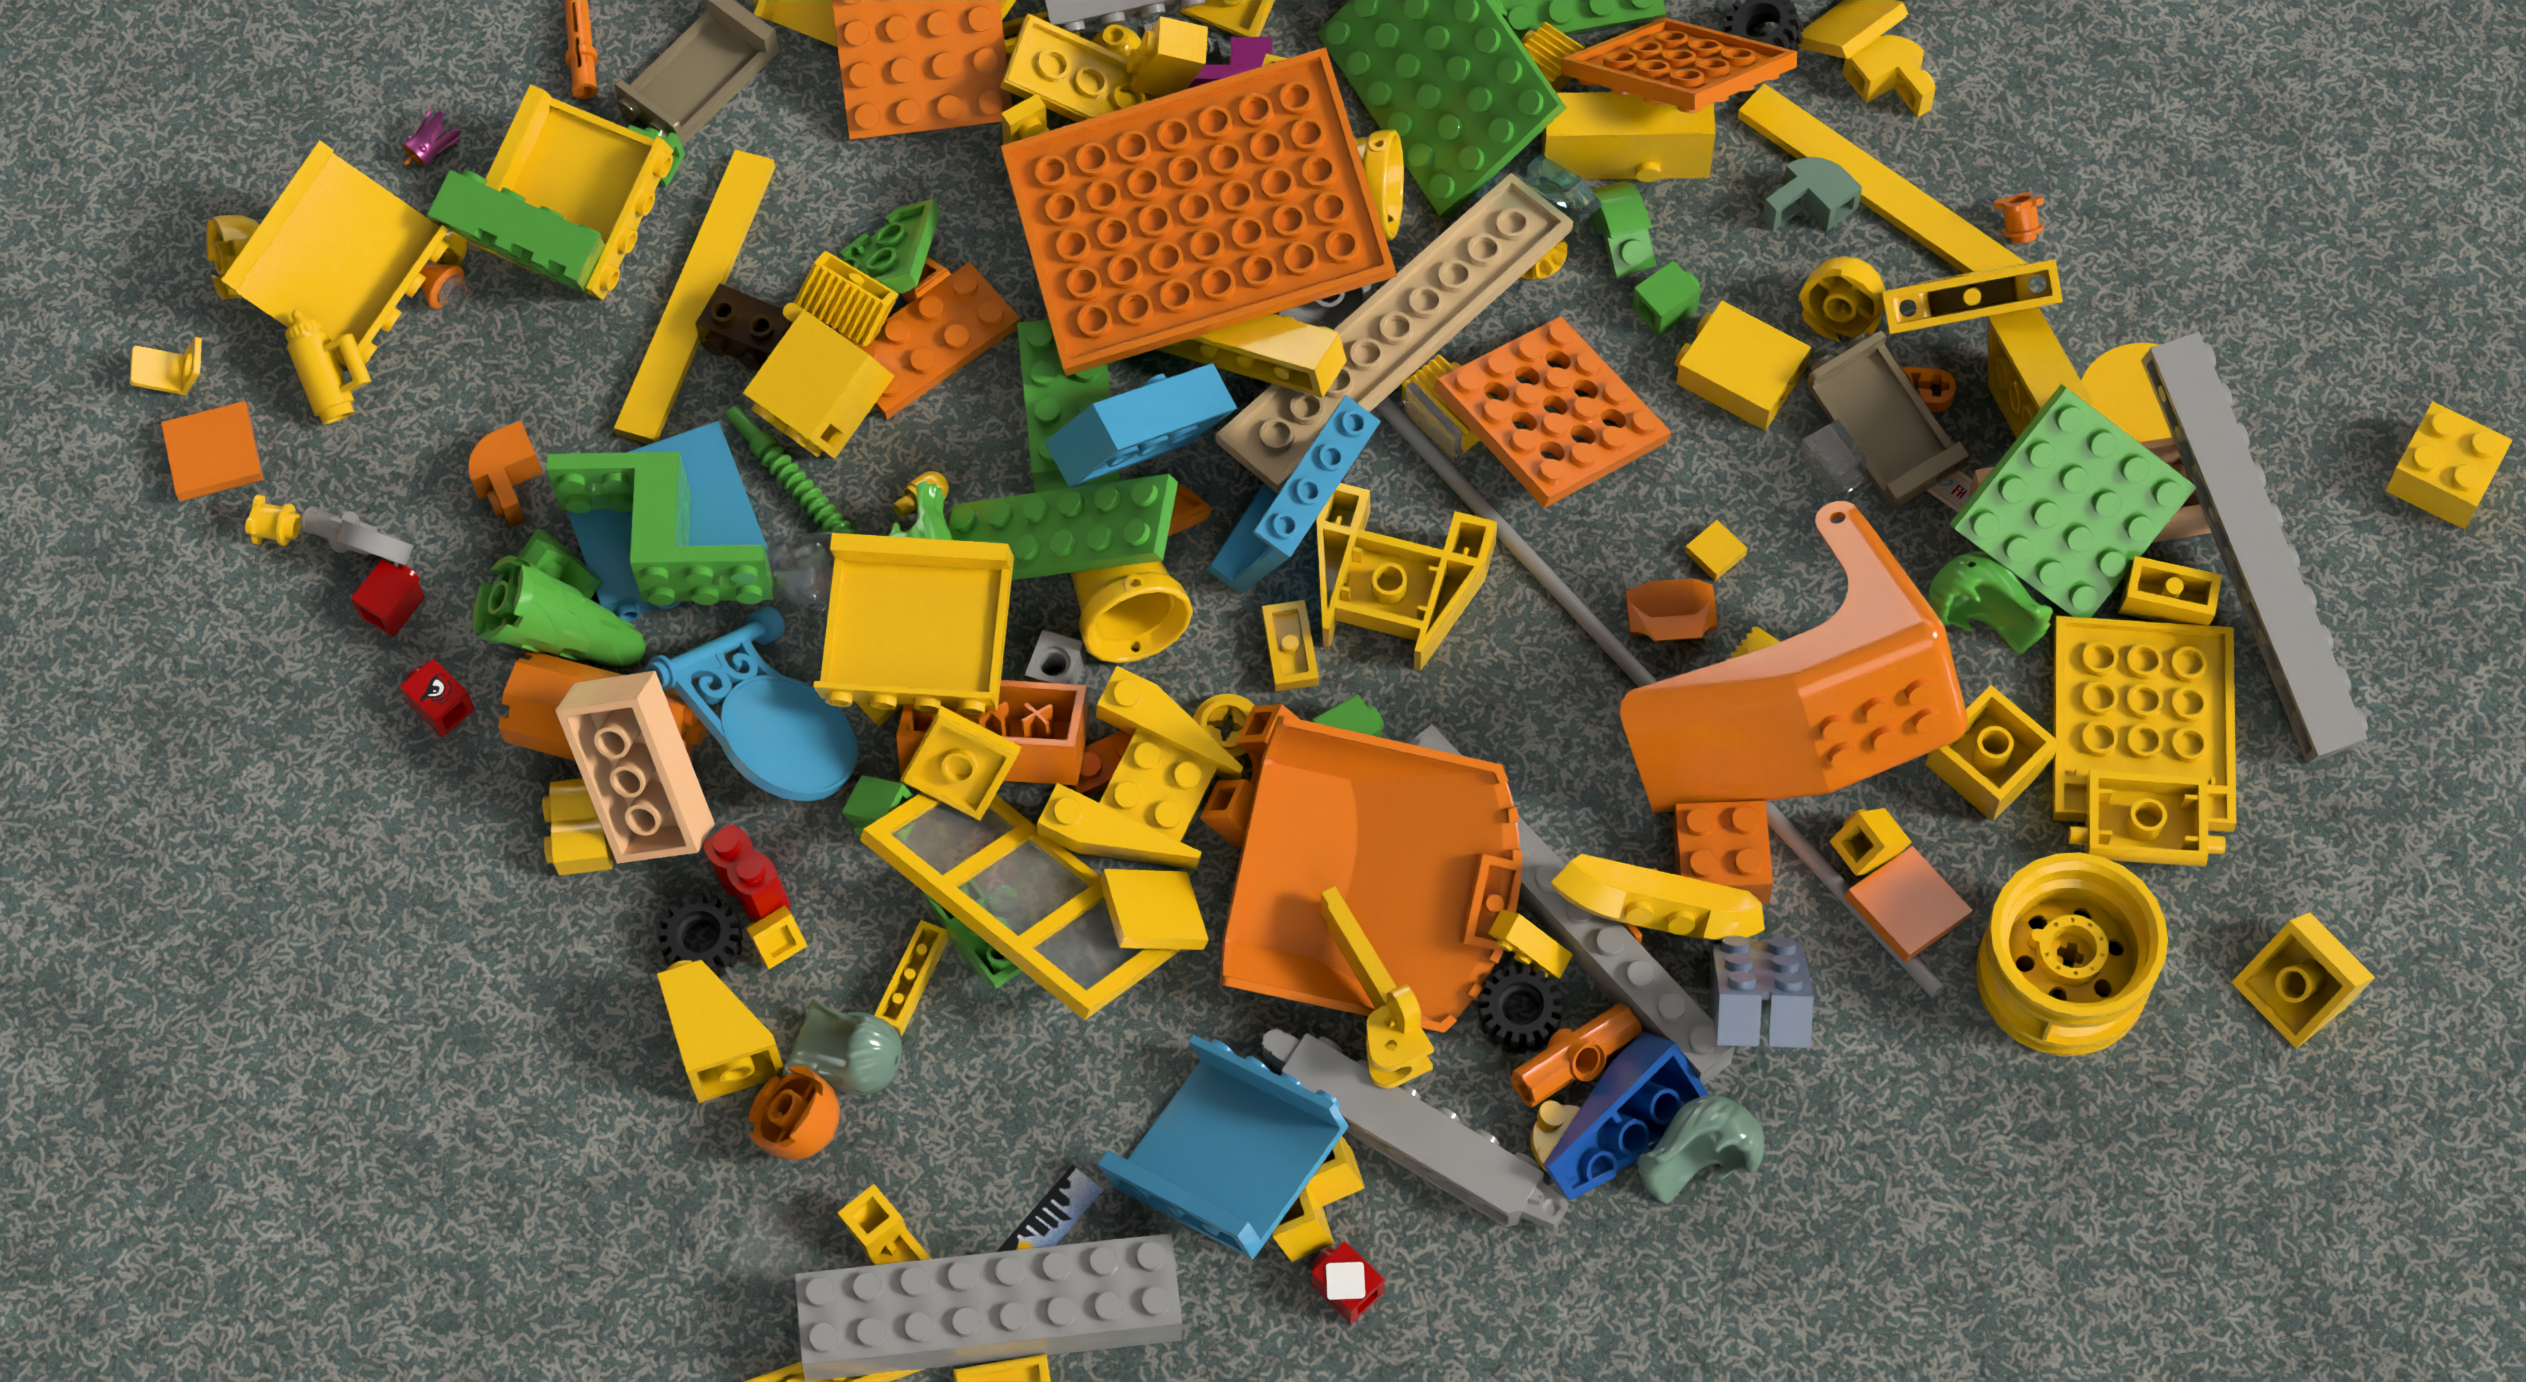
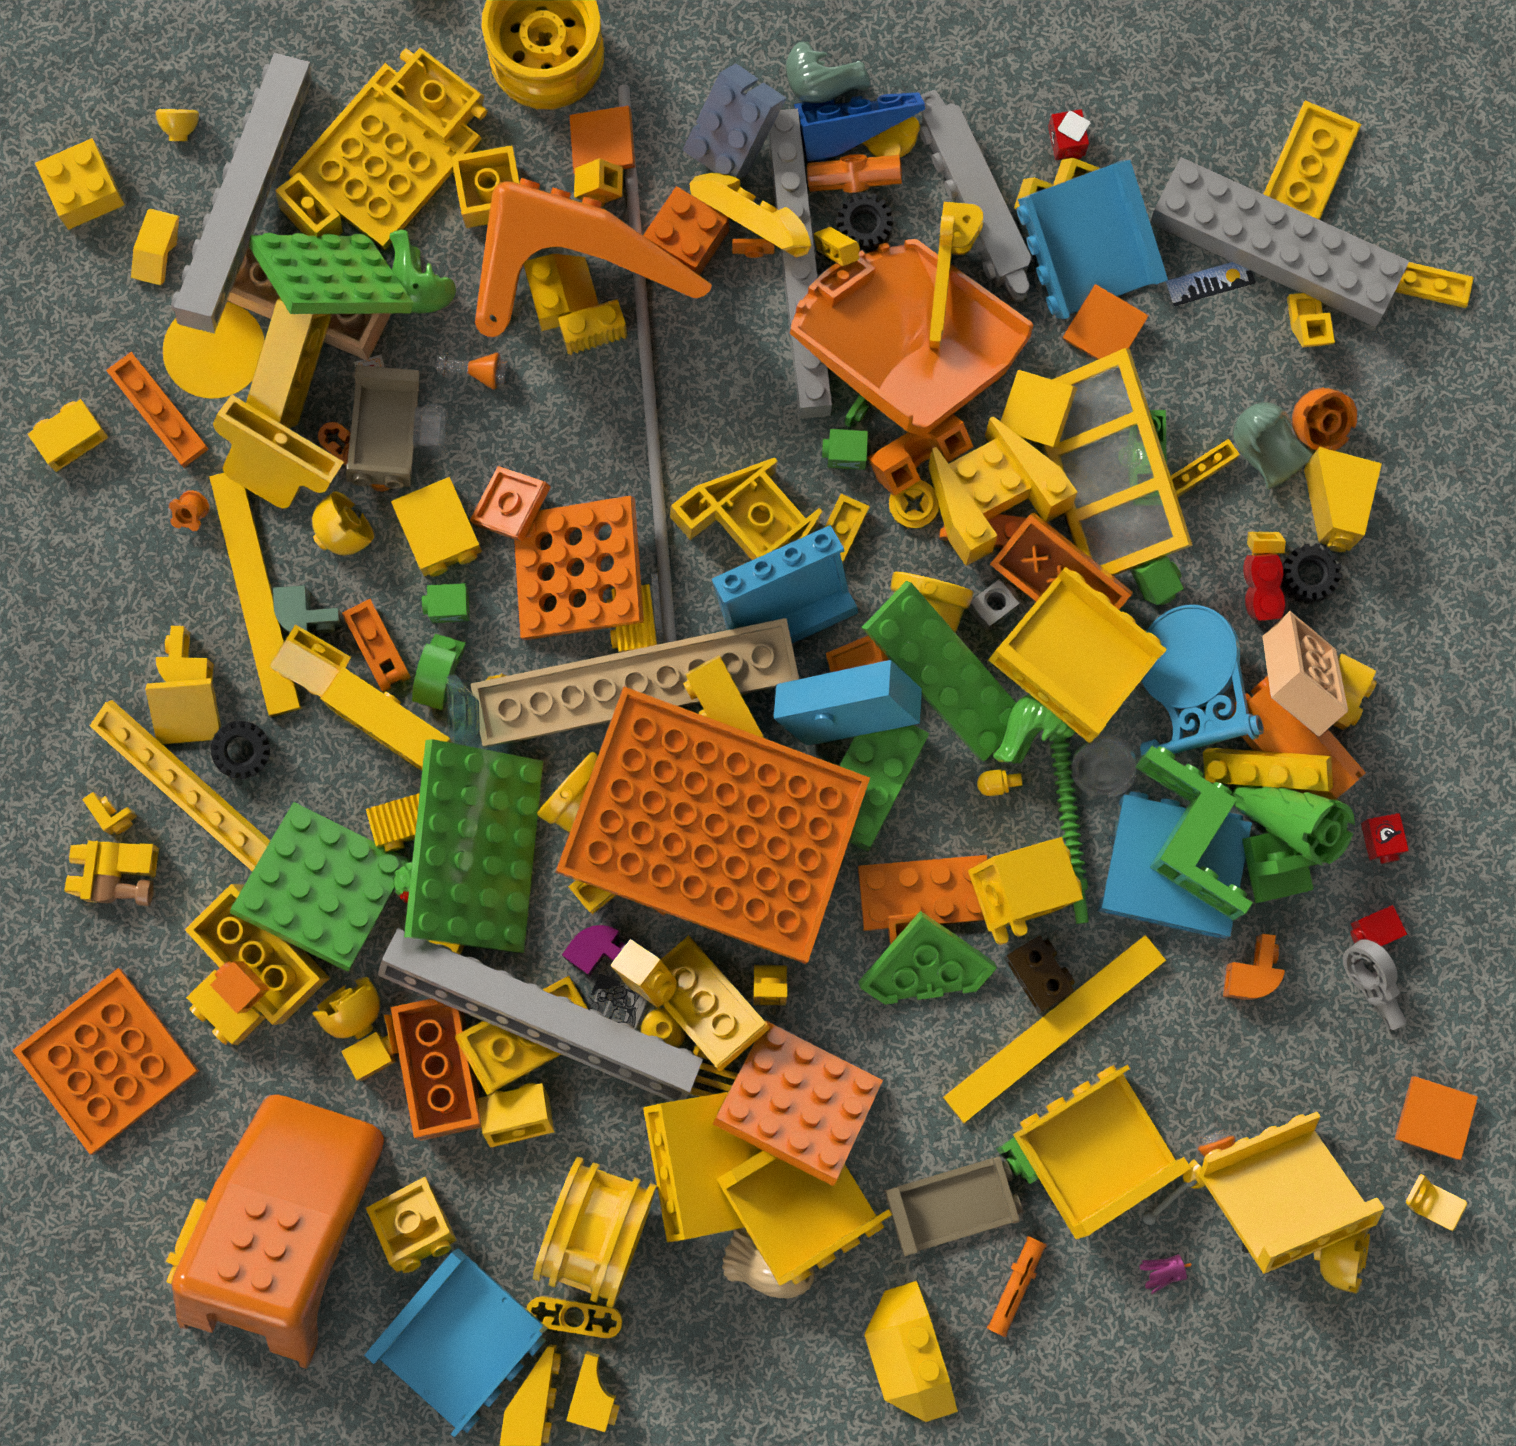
camera: 150 degrees left, 15 degrees up
(272, 522) = (1423, 1035): yellow brick -> none
(320, 369) = (1334, 1117): yellow piece -> none
(517, 229) = (1155, 1129): bright green wedge -> none
(601, 659) = (1268, 769): none -> yellow plate
(846, 299) = (971, 932): yellow brick -> none
(960, 763) = (1101, 556): yellow tile -> none
(1139, 1073) = (1104, 324): none -> orange tile
(1671, 609) = (602, 398): orange slope -> none
(1678, 64) = (330, 719): orange piece -> none
(1682, 435) = (510, 503): none -> orange tile
(1709, 215) = (375, 643): none -> orange plate
(1716, 550) = (543, 424): yellow tile -> none
(1760, 142) = (309, 661): none -> yellow brick
(1820, 568) = (488, 369): none -> piece
(2148, 296) = (157, 409): none -> orange plate
(2217, 209) = (67, 434): none -> yellow brick
(2309, 456) = (153, 243): none -> yellow slope
(2410, 605) = (177, 122): none -> yellow brick

